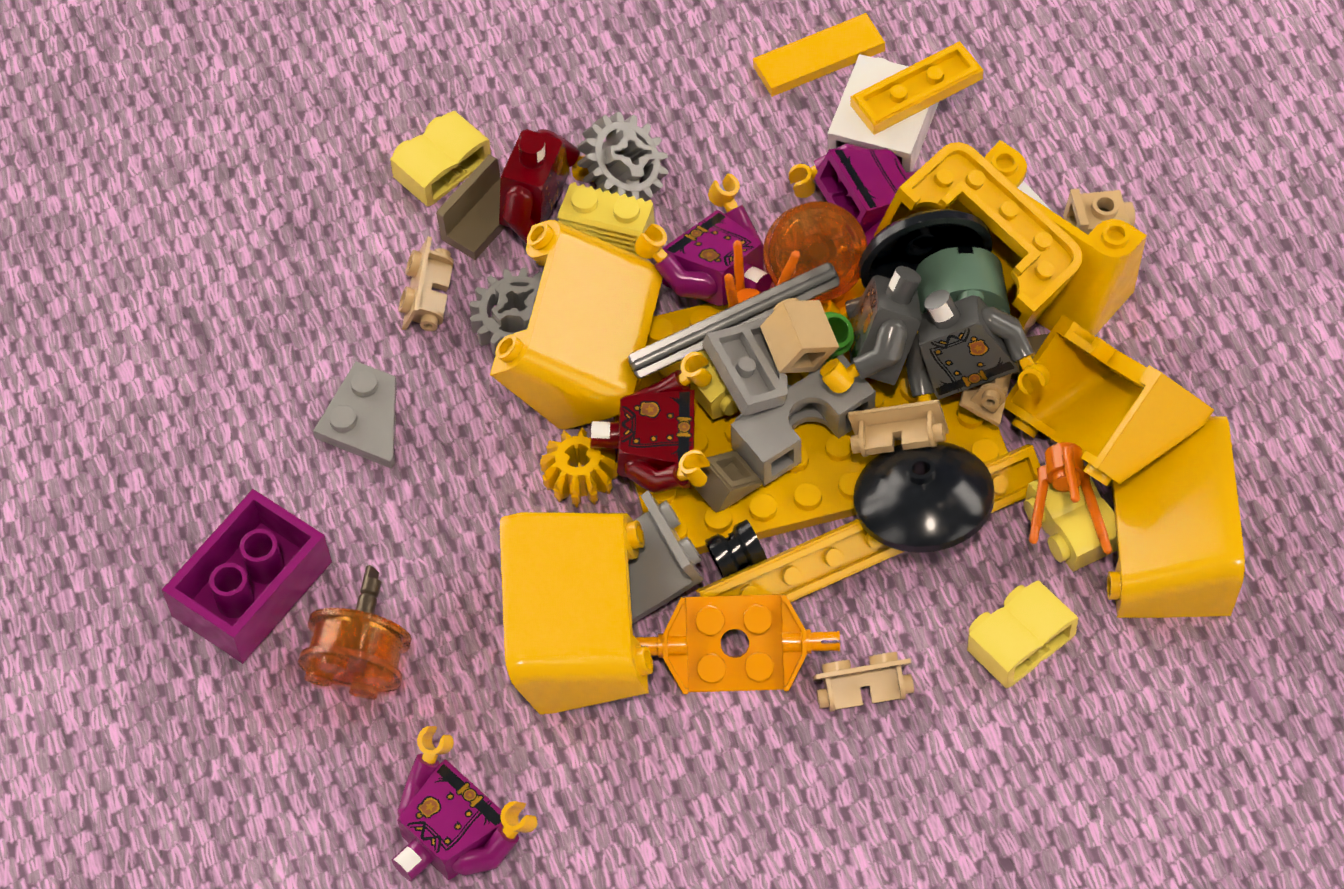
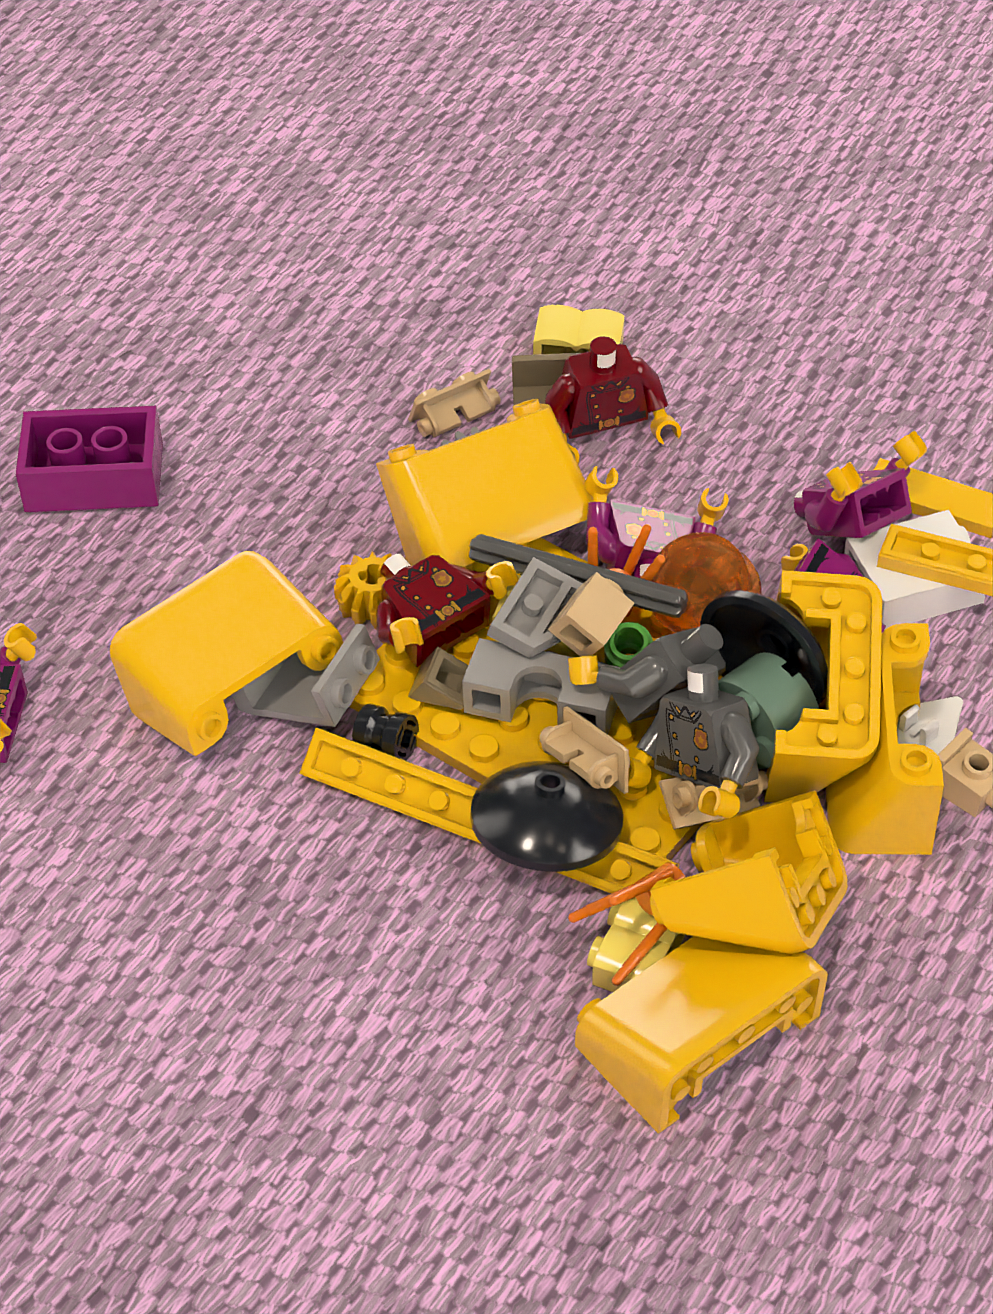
camera: 50 degrees right, 10 degrees down
(355, 645) = (76, 552): clear orange wheel -> none
(362, 415) = (306, 442): light grey wing -> none
(606, 215) = (613, 445): light yellow brick -> none
(623, 157) = (670, 426): light grey gear -> none
(774, 651) = (262, 773): light orange plate -> none
(799, 100) = (860, 501): none -> magenta torso
(844, 683) = (355, 908): tan hinge -> none
(1021, 632) = (484, 978): light yellow brick -> none

